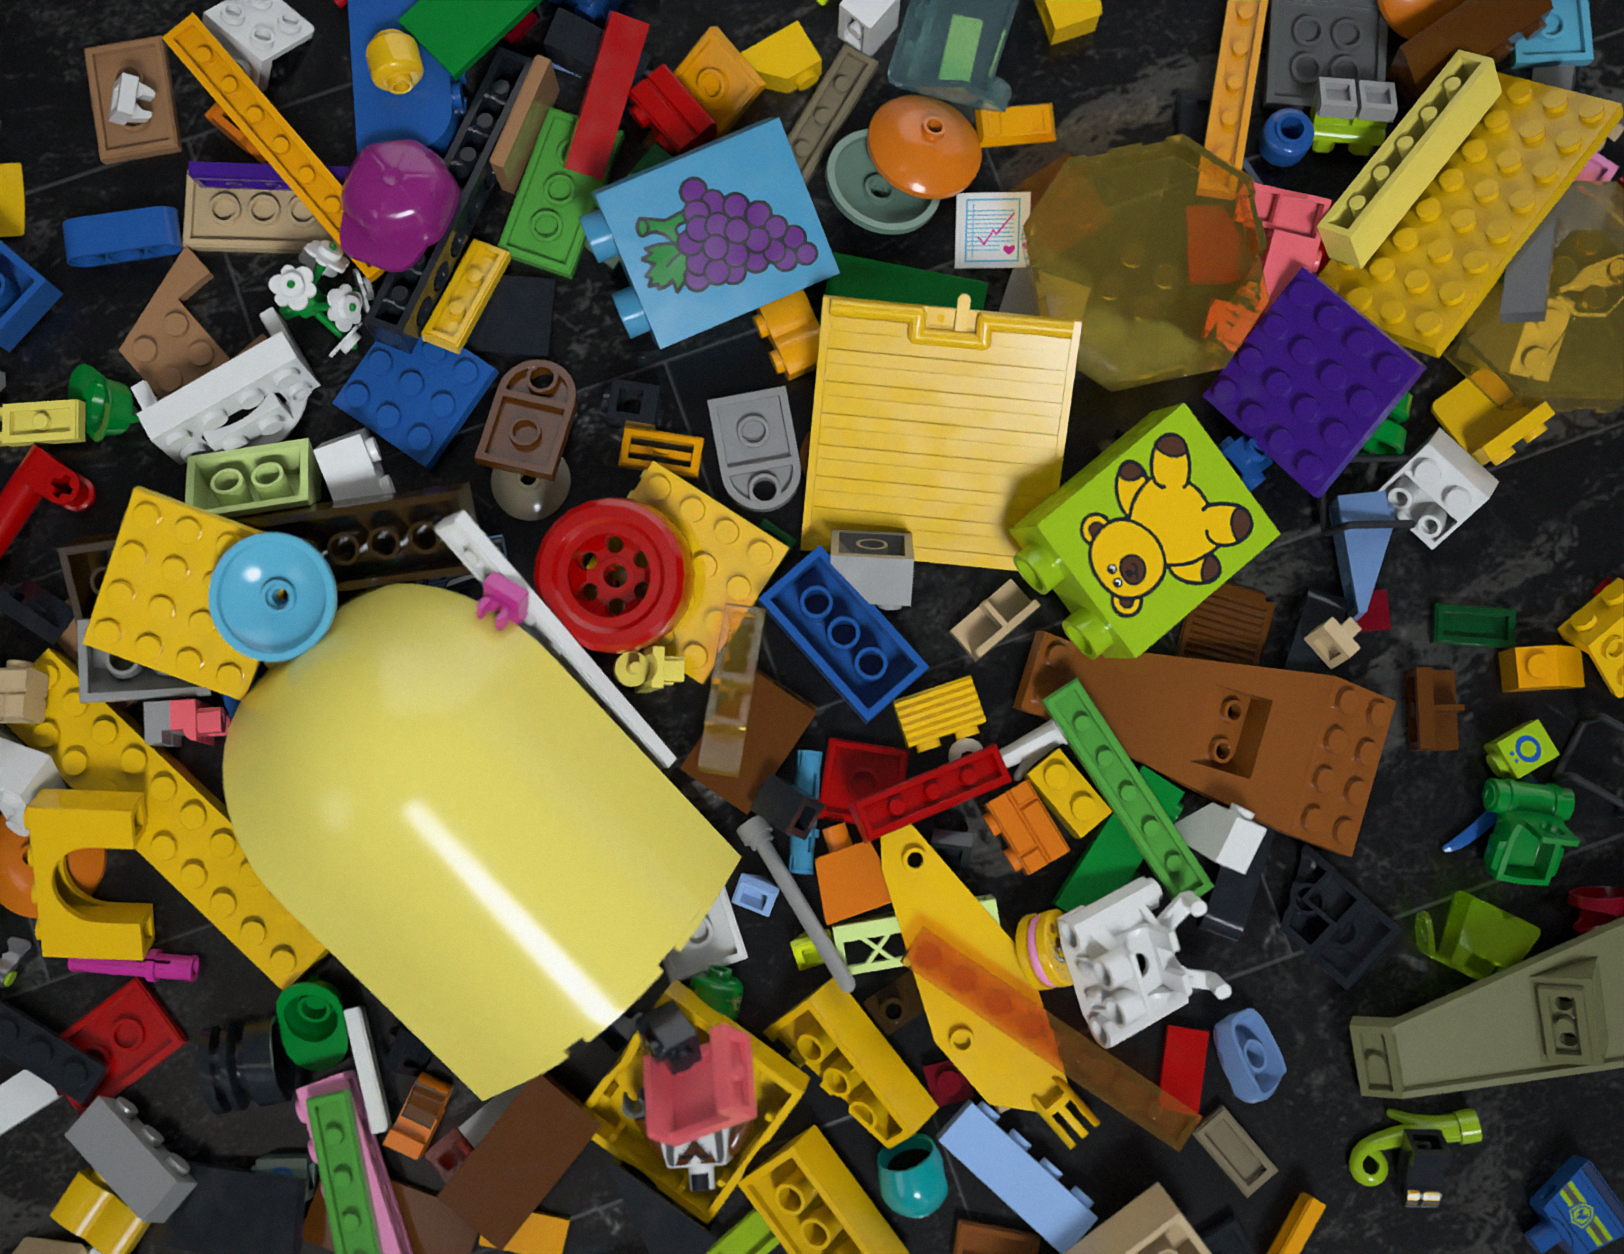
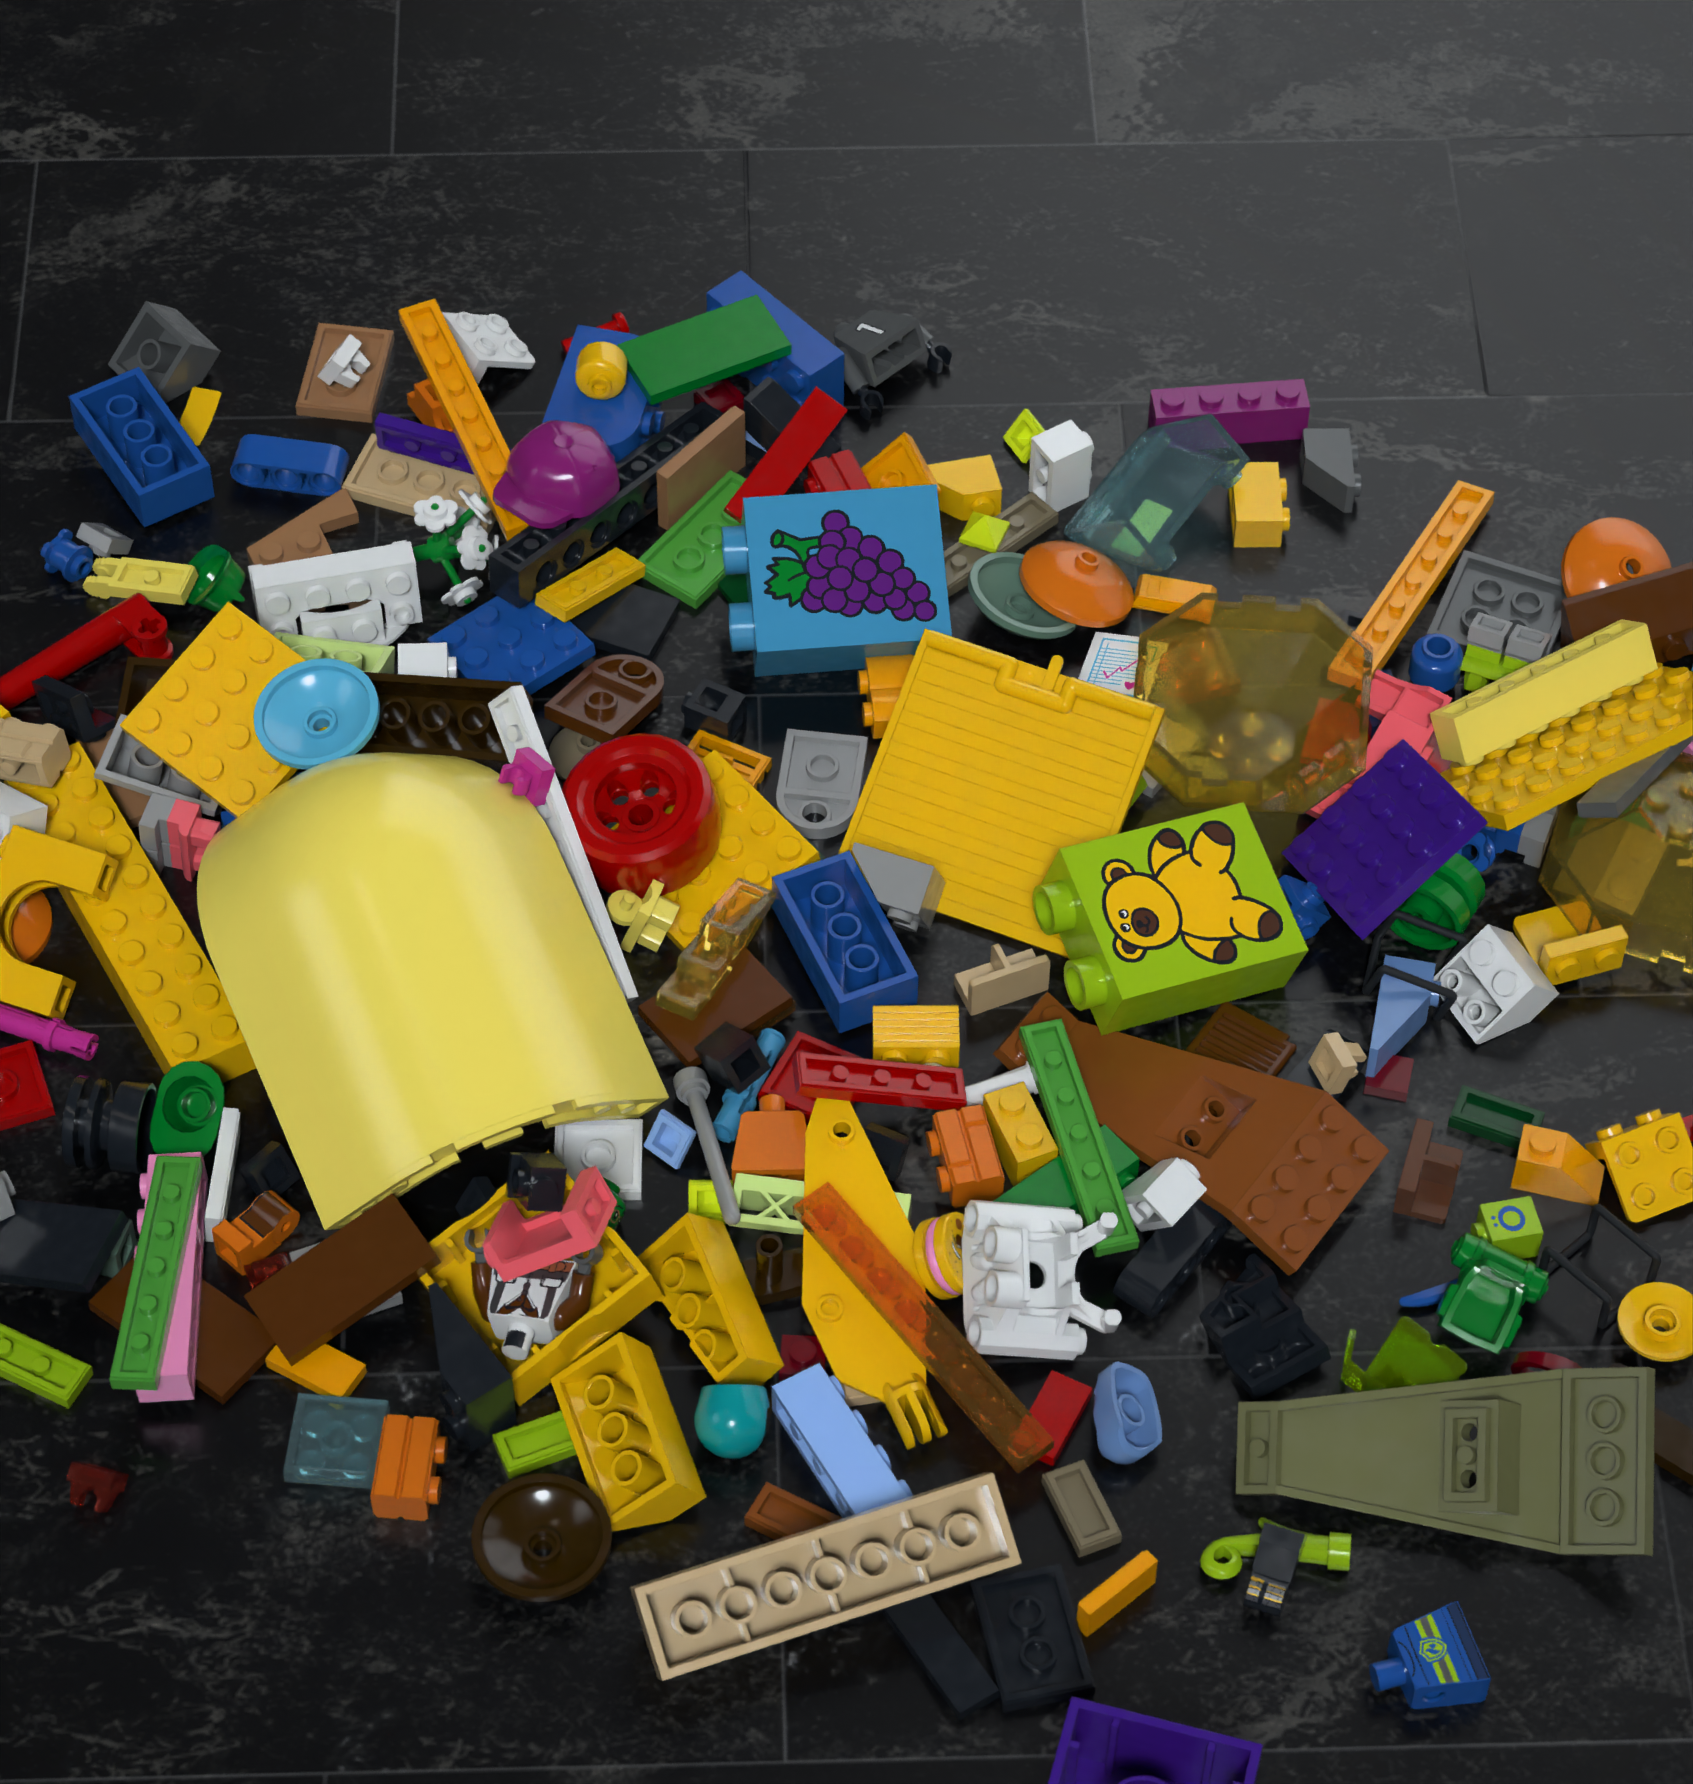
camera: 20 degrees right, 30 degrees down
(817, 109) = (984, 532): none -> neon yellow slope

